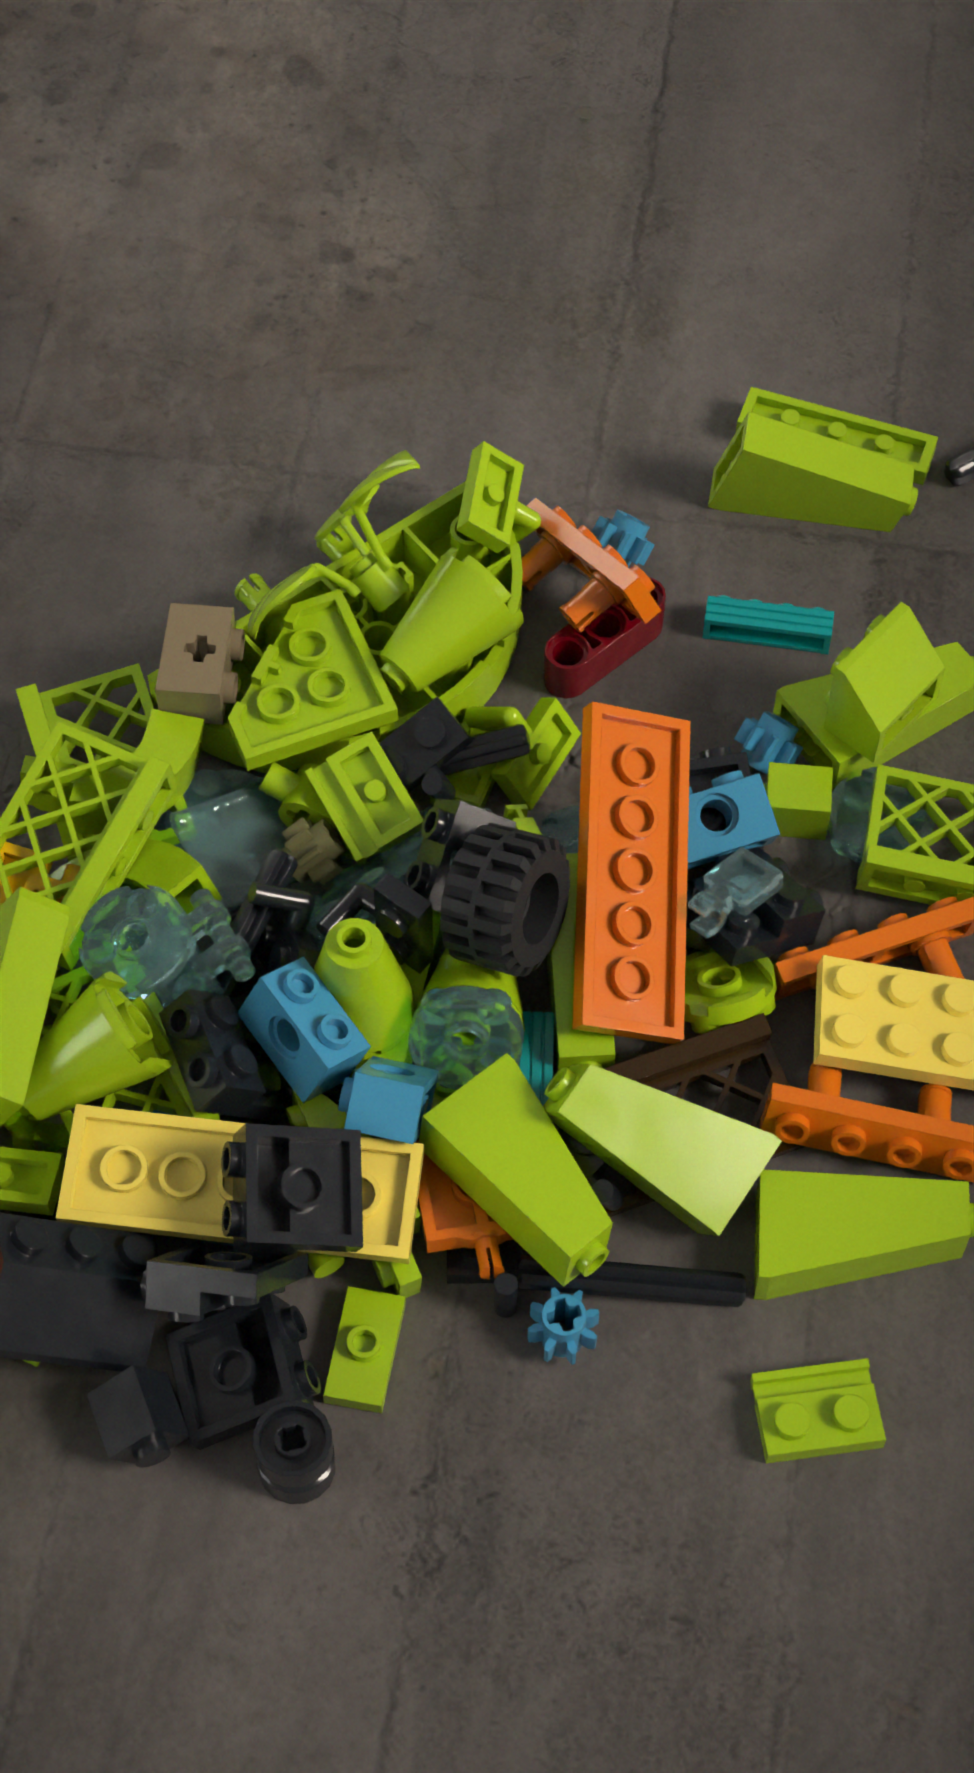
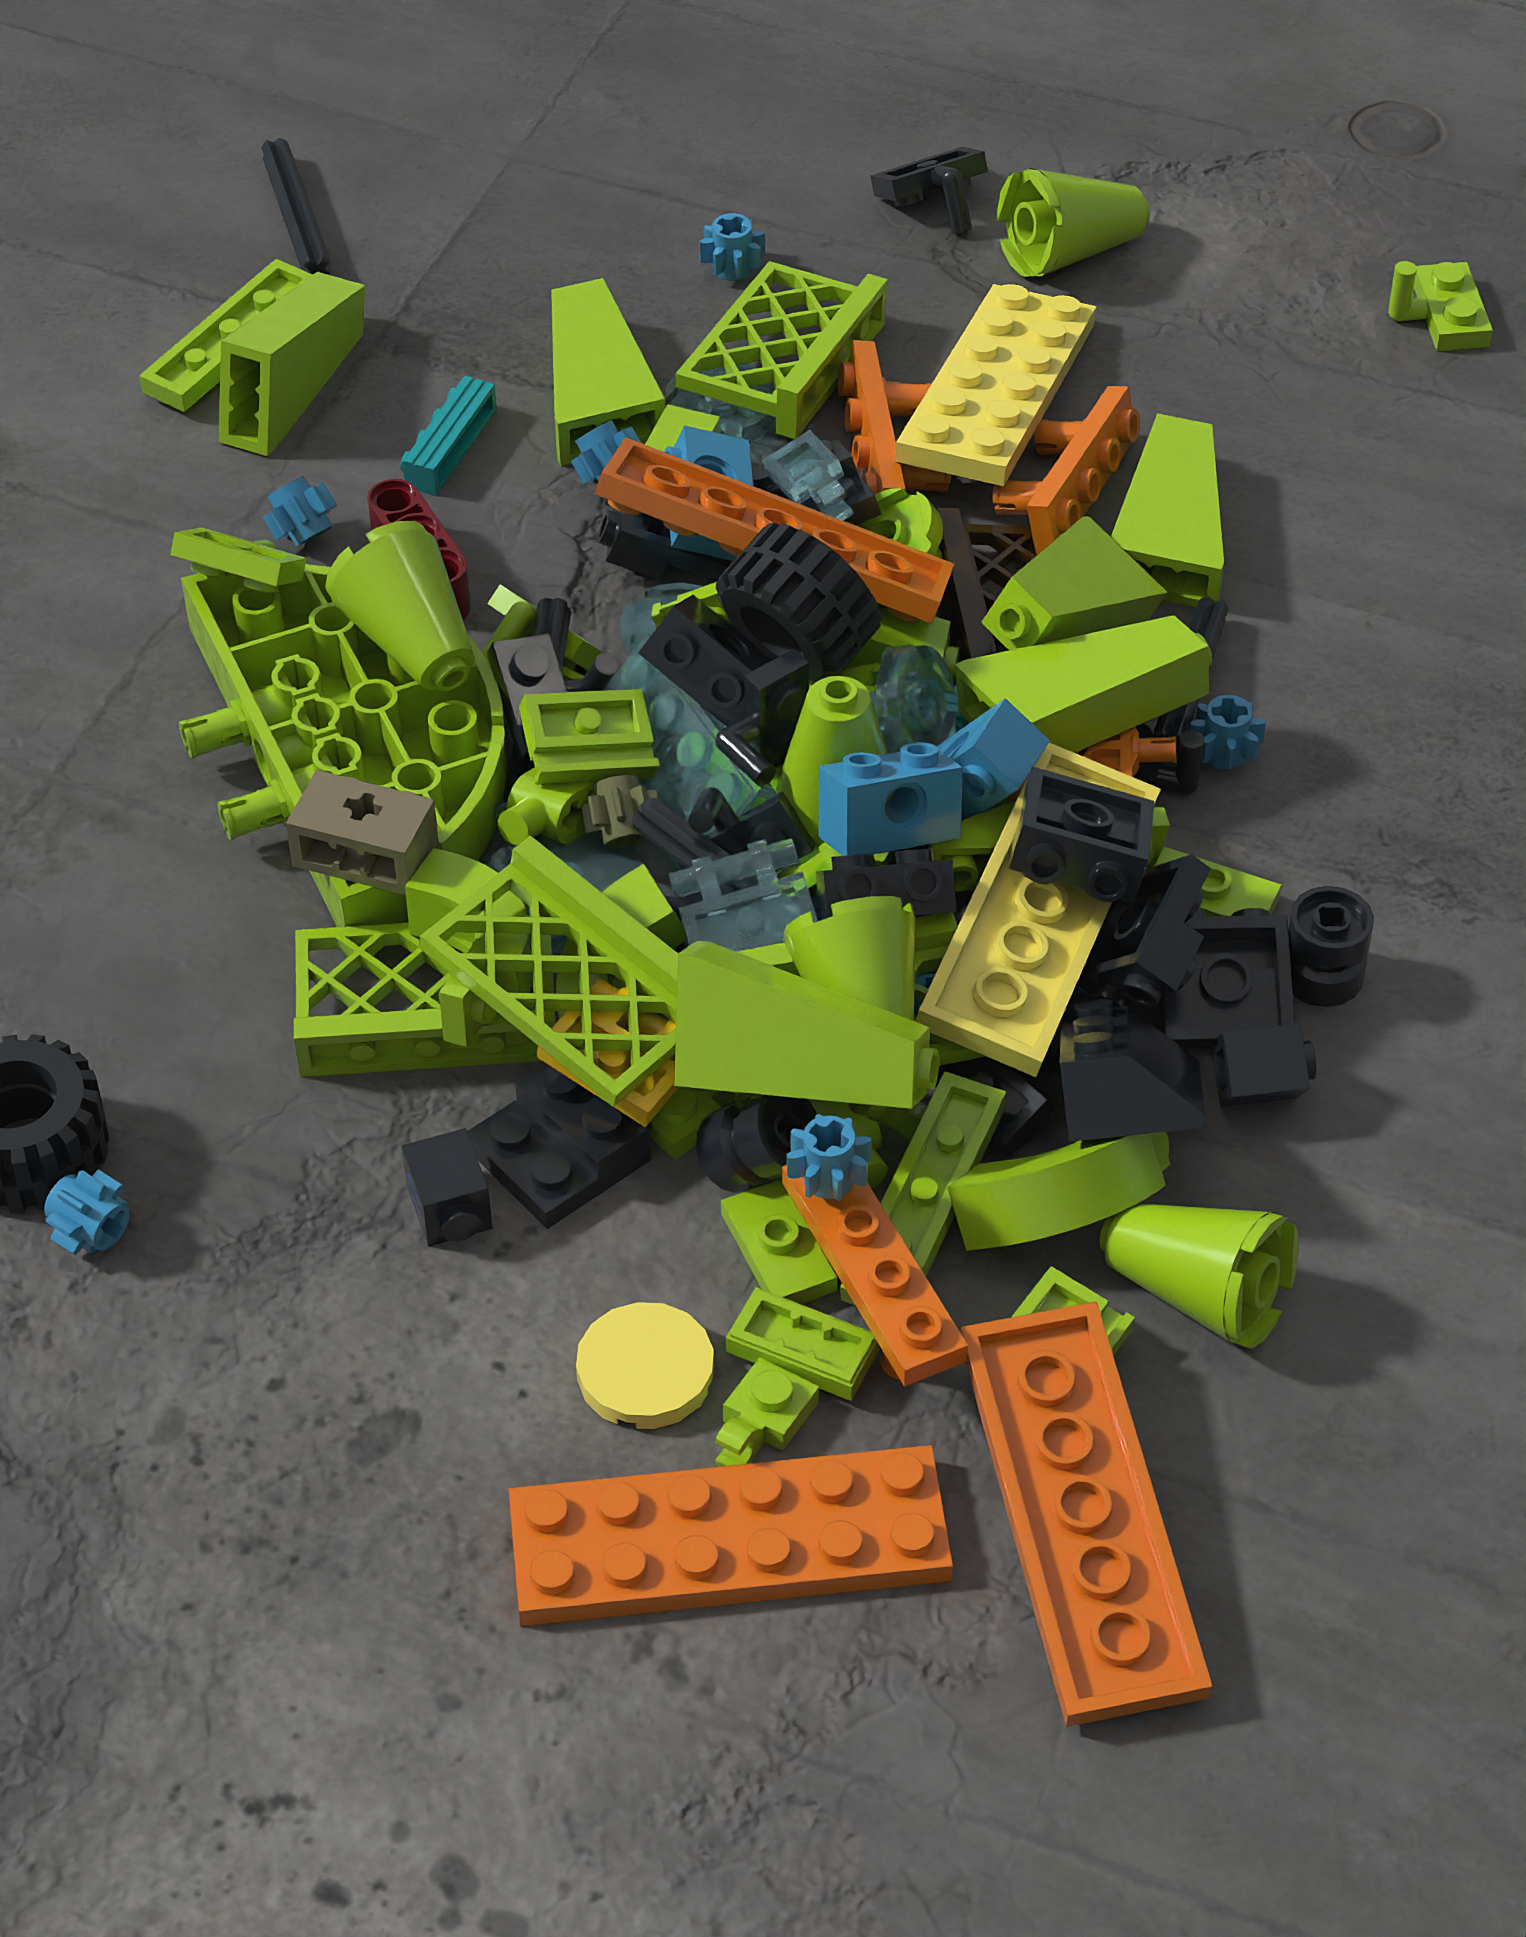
camera: 75 degrees left, 10 degrees down
(137, 910) = (739, 897): clear light blue plate -> none
(311, 686) = (428, 740): lime plate -> none
(373, 572) = (309, 727): lime plant -> none
(605, 568) = (359, 504): orange plate -> none
(817, 1411) = (1346, 586): lime plate -> none
(883, 683) = (608, 328): lime slope -> none

